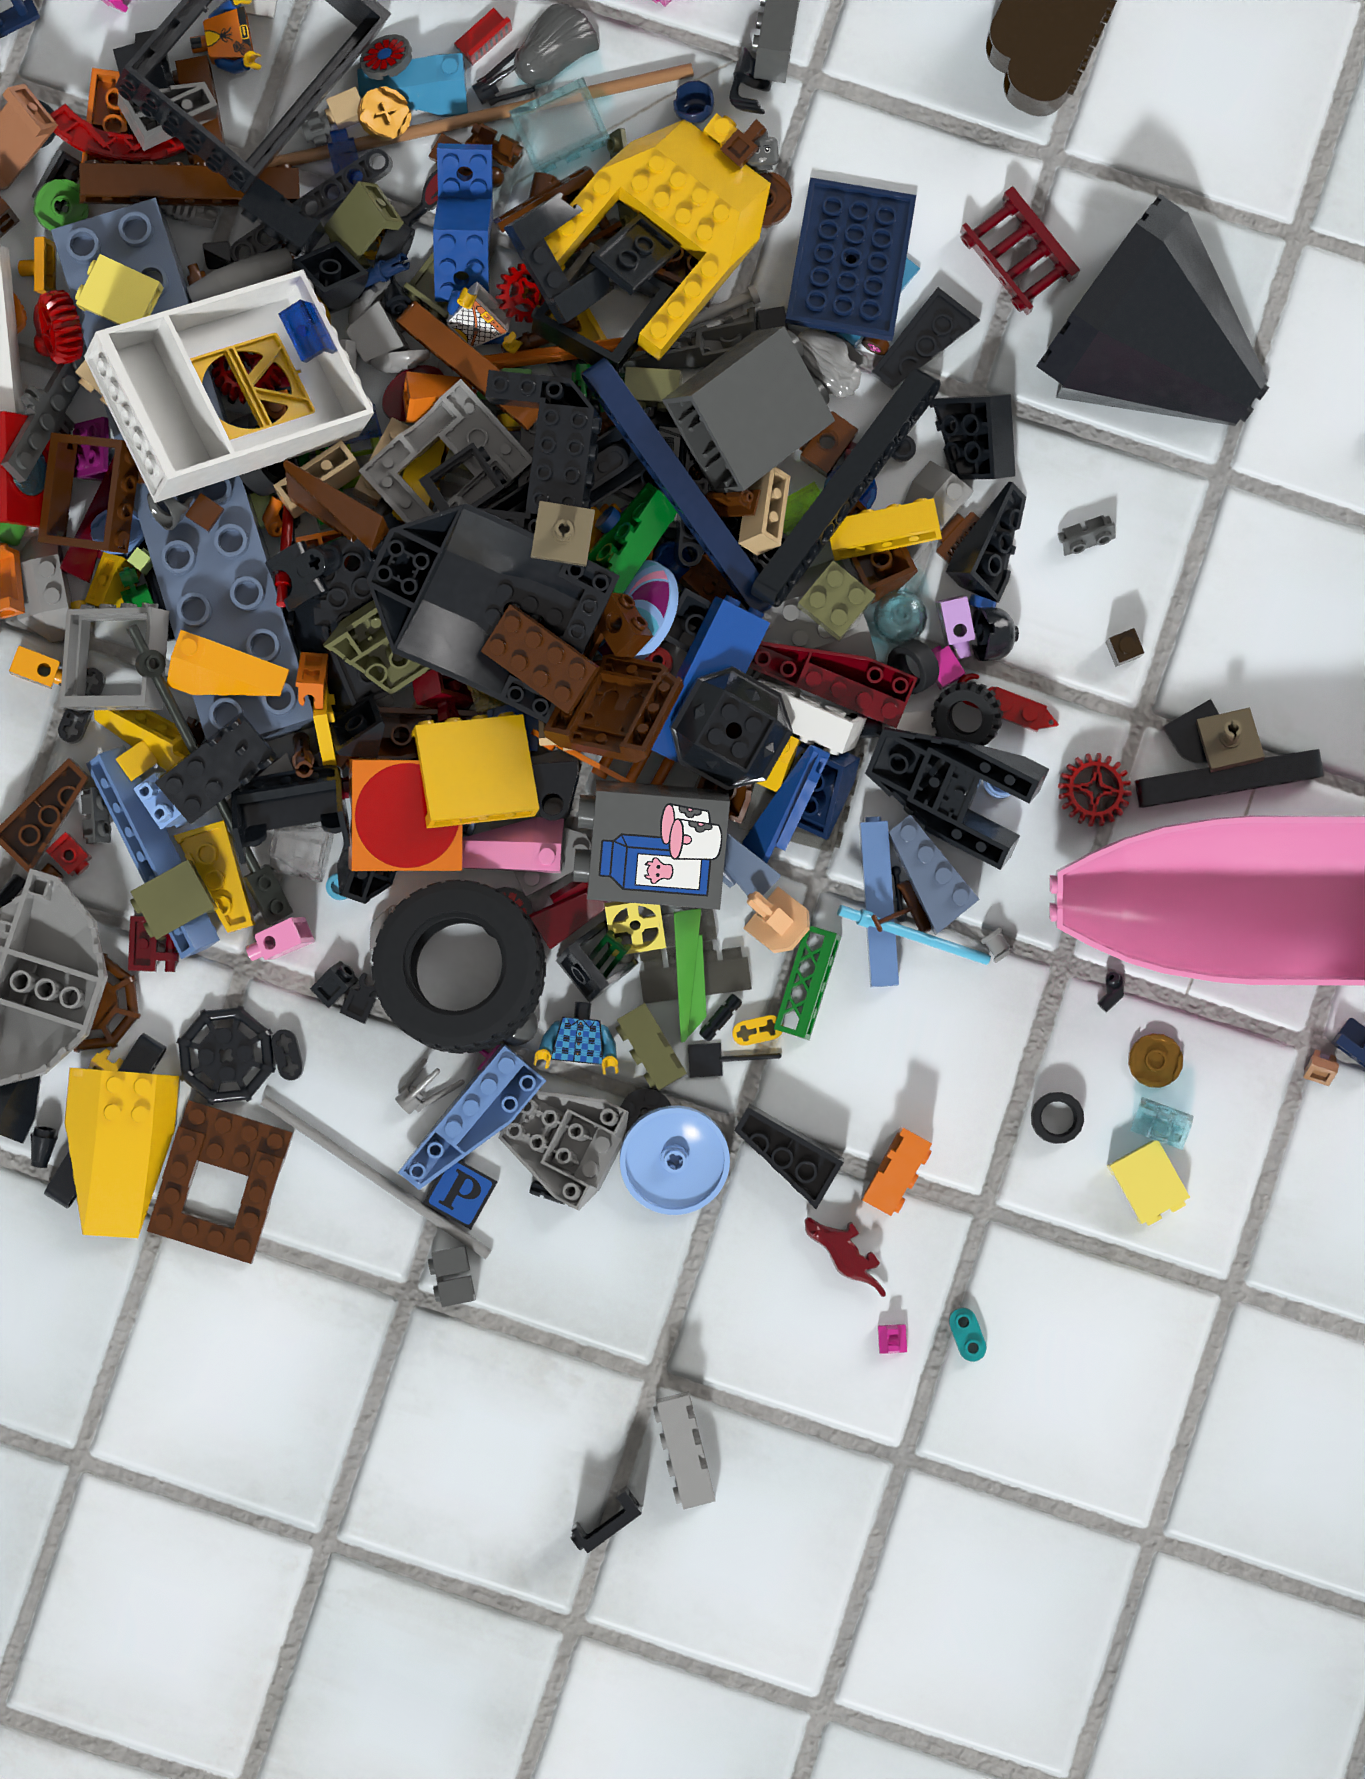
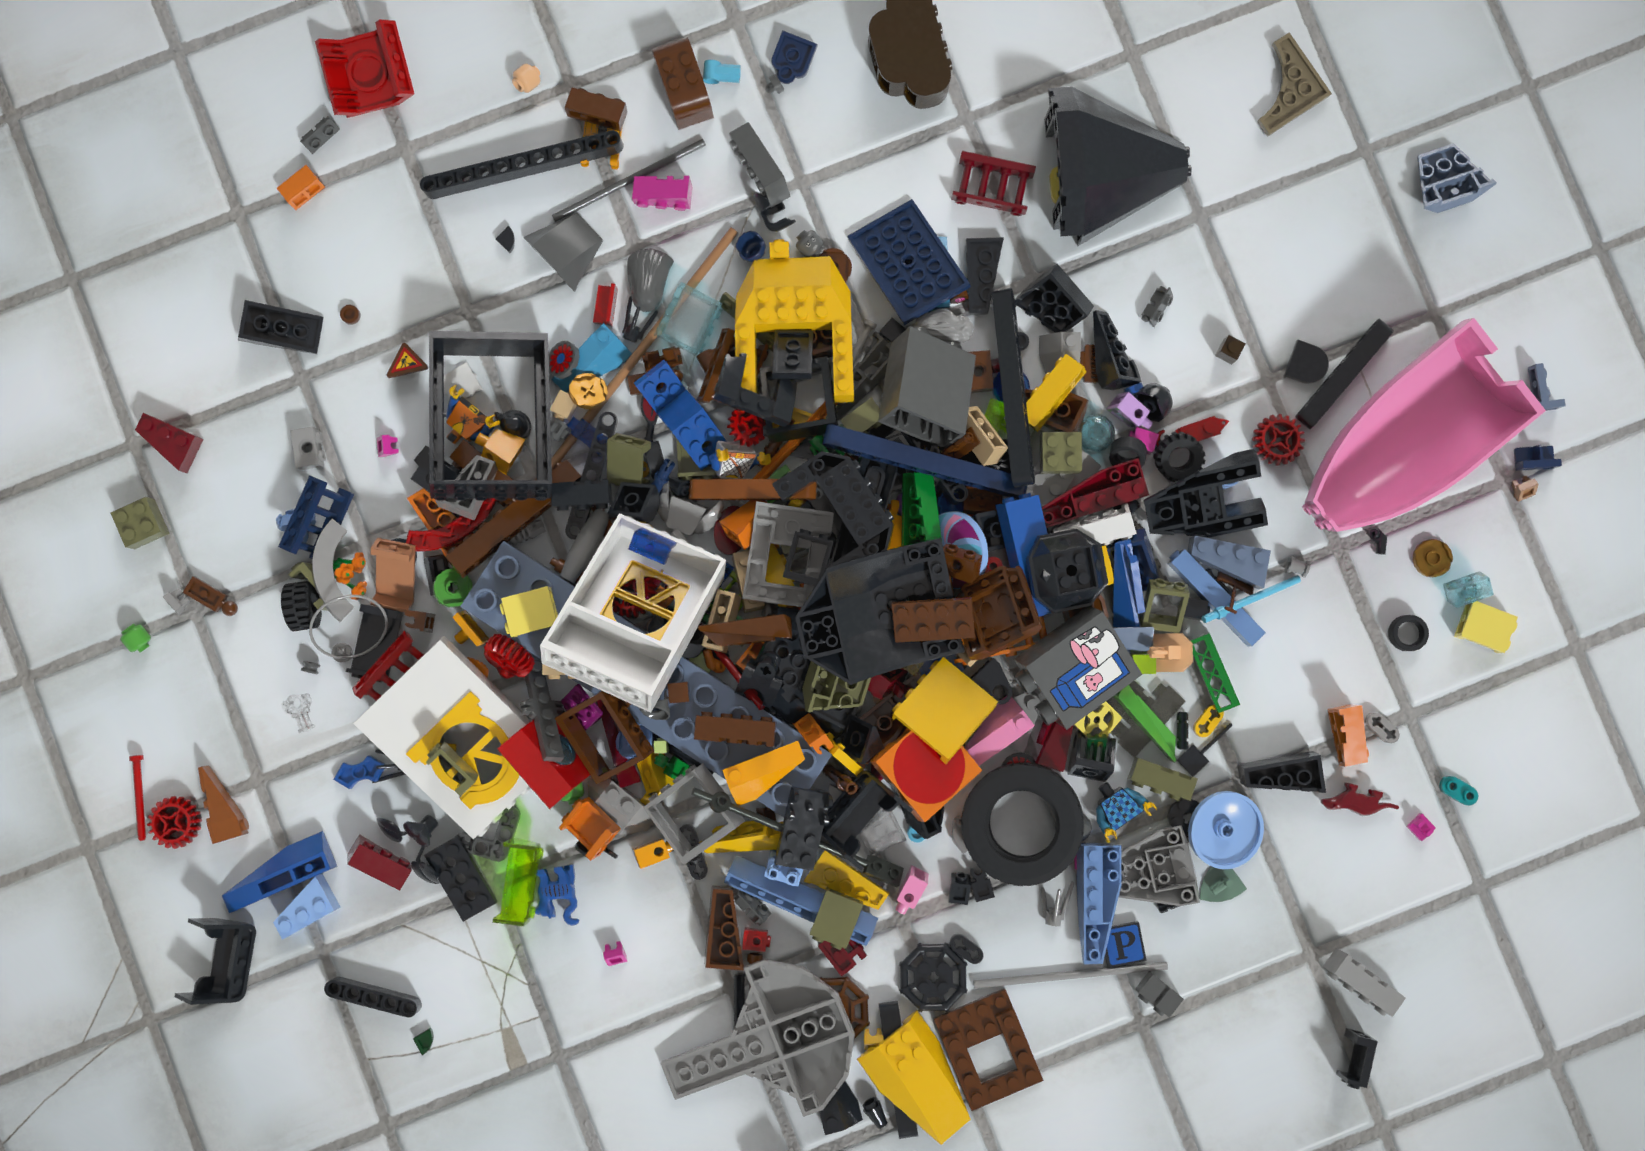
camera: 40 degrees left, 0 degrees up
(137, 760) = (750, 857): yellow slope -> none
(217, 254) = (561, 543): black slope -> none
(231, 601) = (735, 729): none -> reddish brown wedge
(238, 98) = (501, 448): none -> light orange torso
(275, 85) = (514, 422): none -> black hat
(562, 533) = (891, 540): dark tan tile -> none
(607, 519) = (898, 511): blue tile -> none
(621, 1219) = (1221, 885): none -> sand green shield
(735, 908) = (1145, 663): none -> lime brick
(741, 146) = (799, 248): reddish brown plate -> none
(796, 880) = (1159, 621): none -> olive window
(844, 893) = (1196, 609): none -> black brick
(934, 1197) = (1379, 731): none -> light grey beam
(1230, 739) = (1329, 352): dark tan tile -> none

